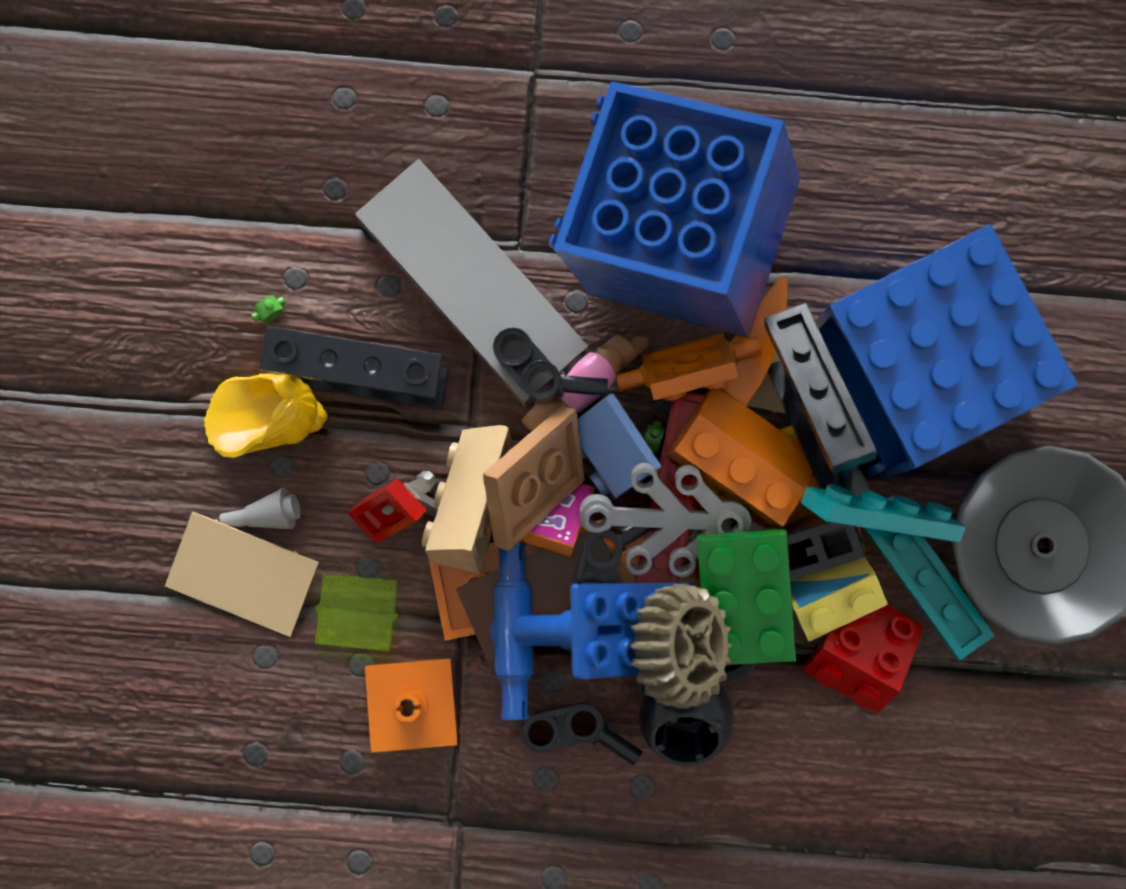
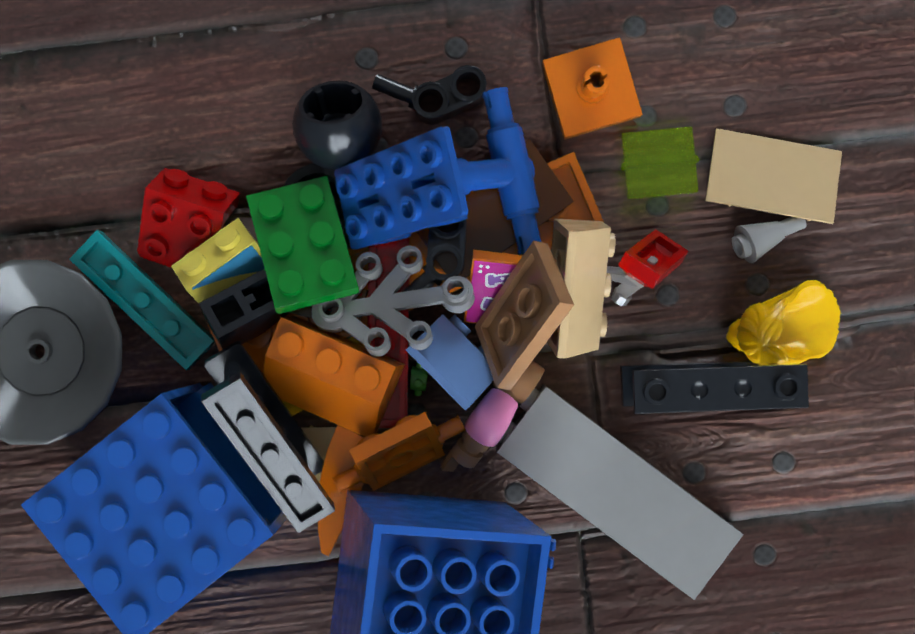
camera: 170 degrees right, 5 degrees up
(268, 309) = (803, 427): bright green piece -> none
(536, 362) = (544, 426): black beam -> none
(681, 646) = (353, 182): dark tan gear -> none
(876, 512) = (193, 346): teal plate -> none

